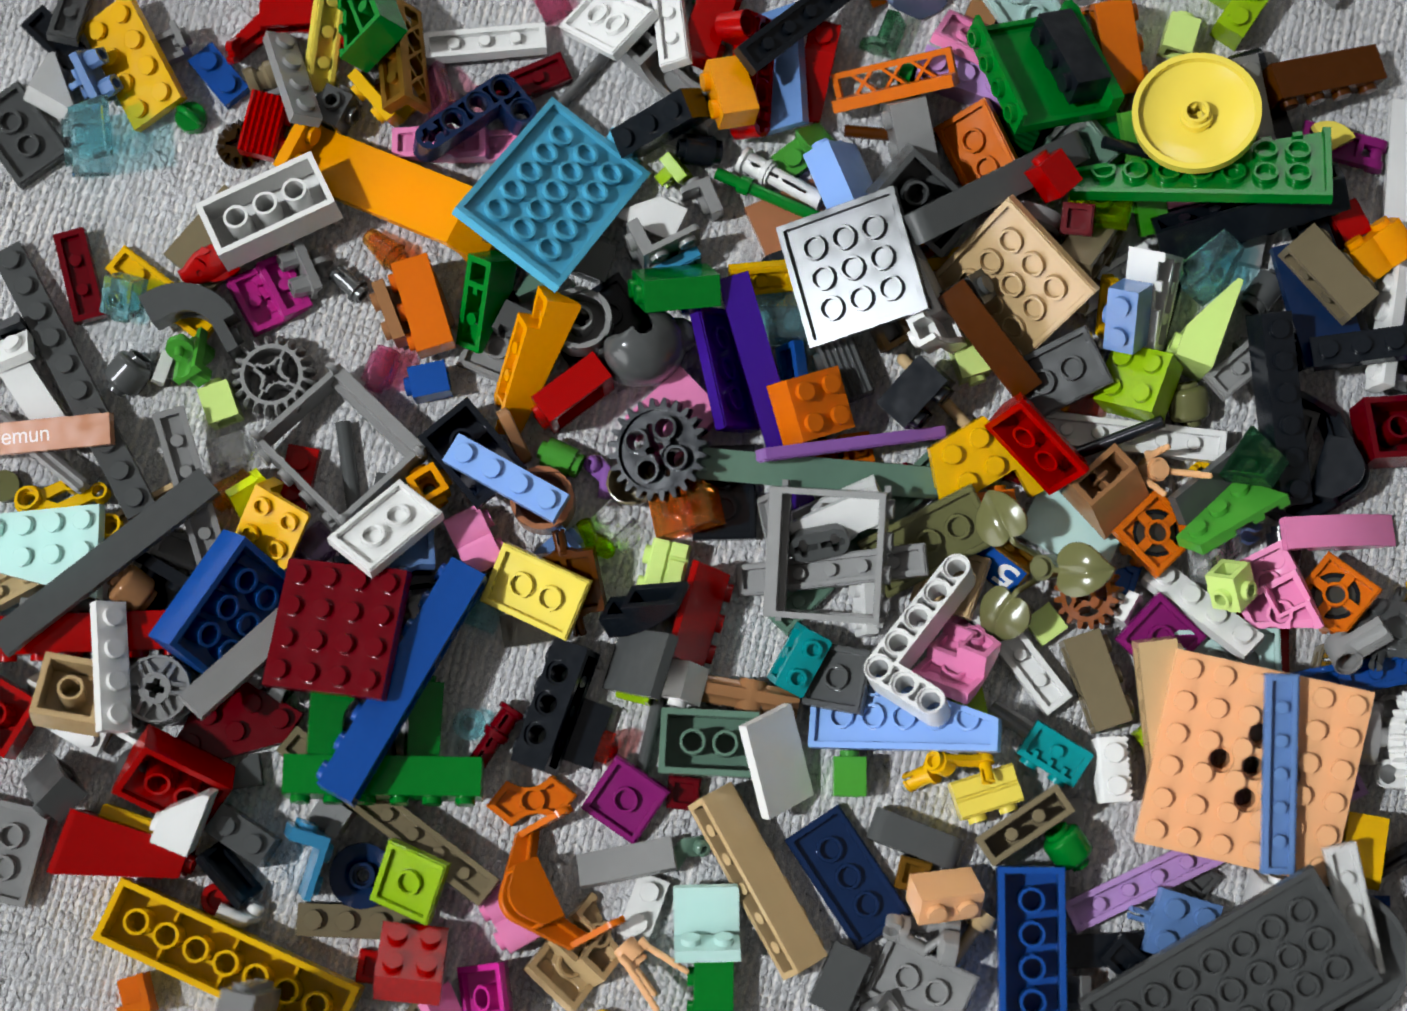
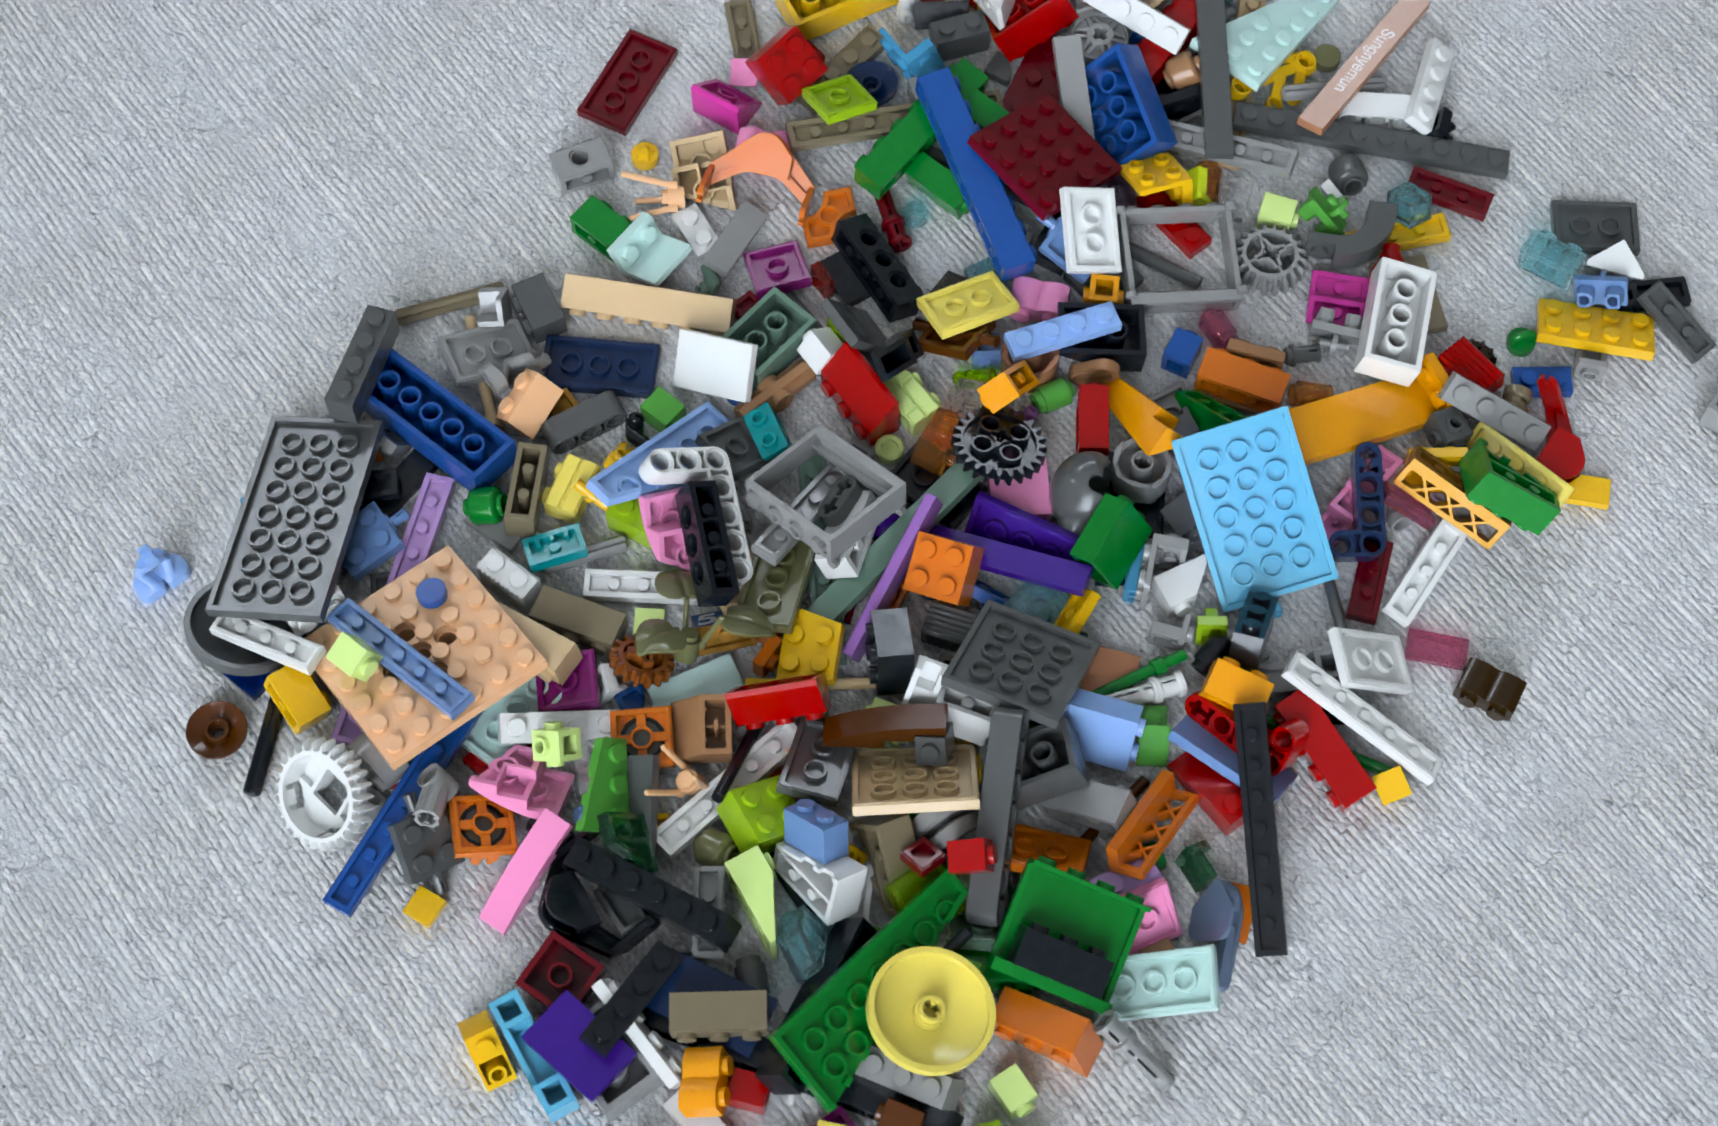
camera: 130 degrees right, 15 degrees down
(600, 480) = (1007, 386): none -> light orange brick
(721, 556) = (889, 449): none -> yellowish green tile
(886, 787) = (635, 429): none -> black arm
(961, 608) = (707, 543): none -> black brick
(1198, 803) = (431, 593): none -> blue tile
(1317, 805) = (354, 657): none -> yellowish green brick

